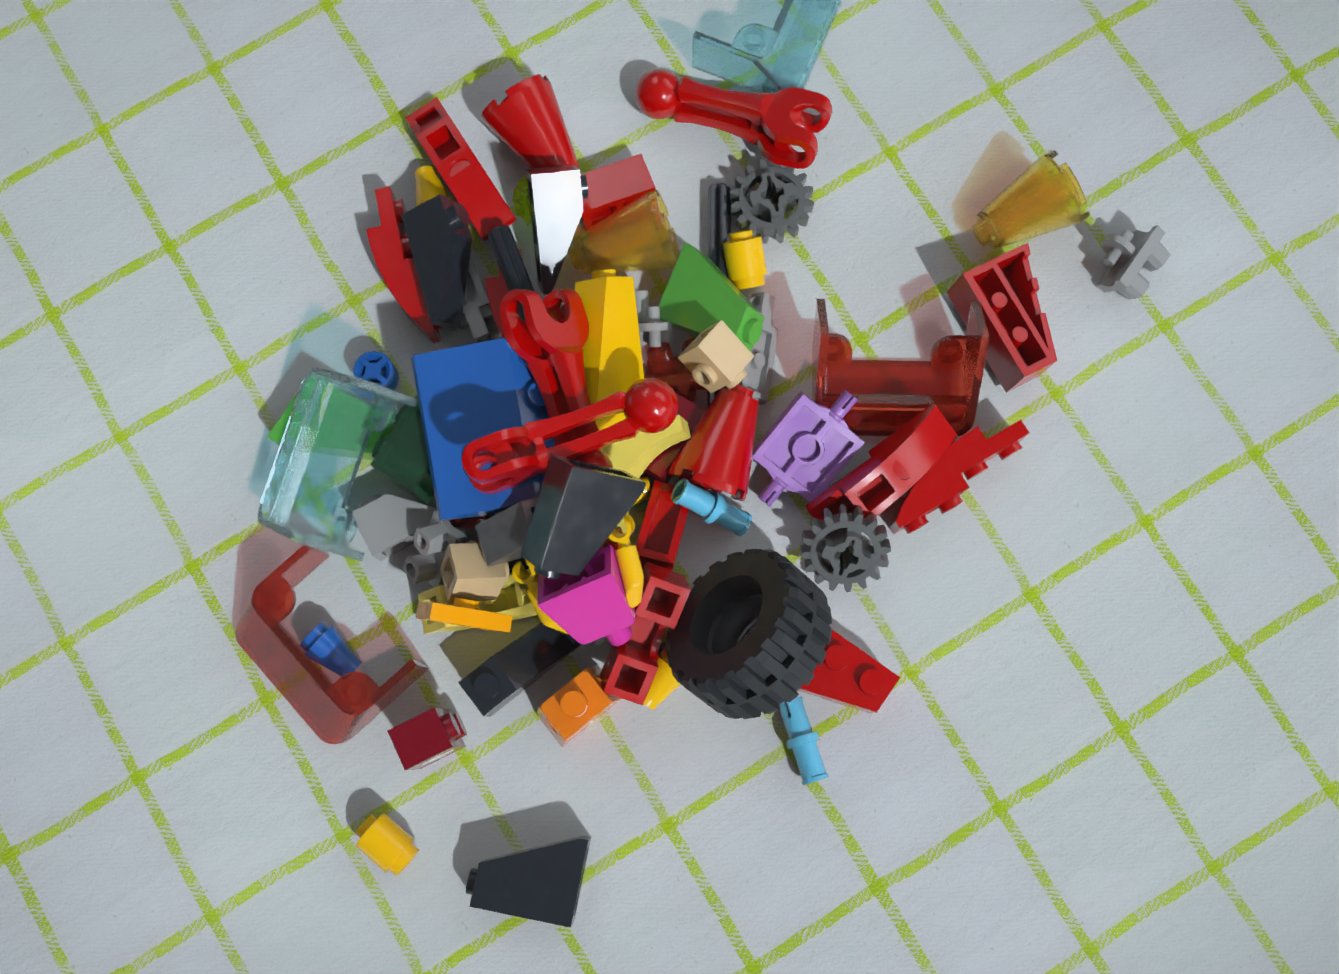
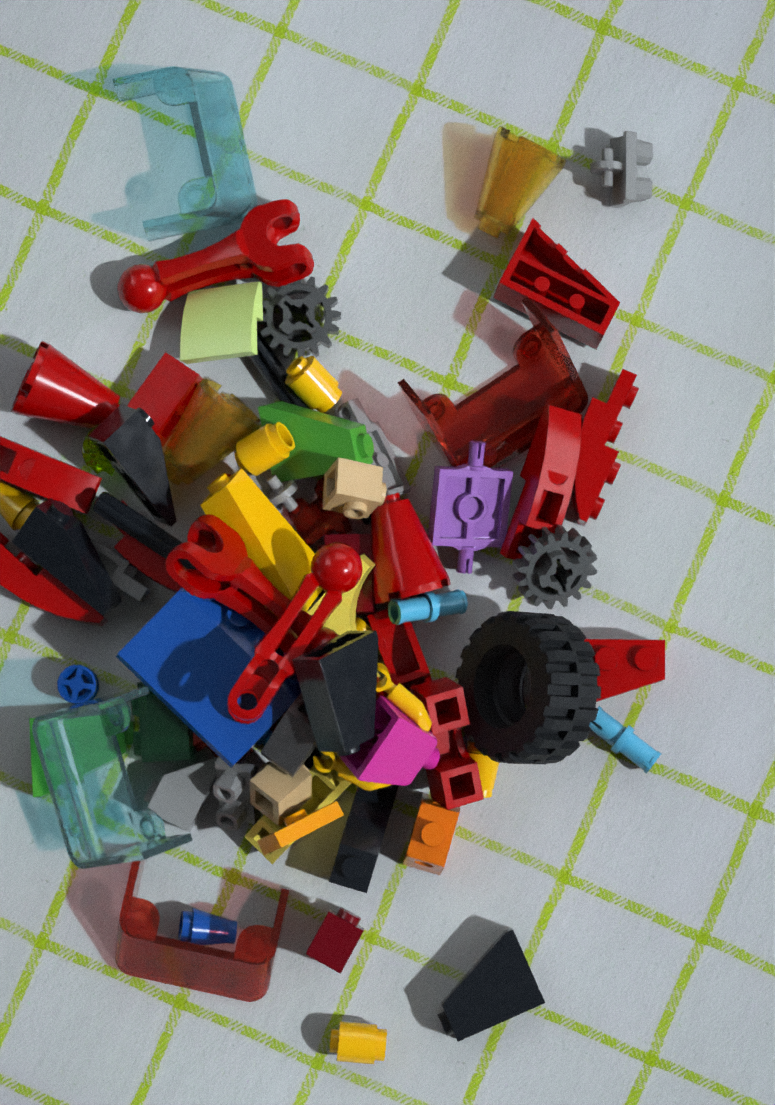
camera: 40 degrees left, 5 degrees up
(665, 277) = (264, 448): none -> yellow brick
(703, 161) = (221, 323): none -> yellowish green slope

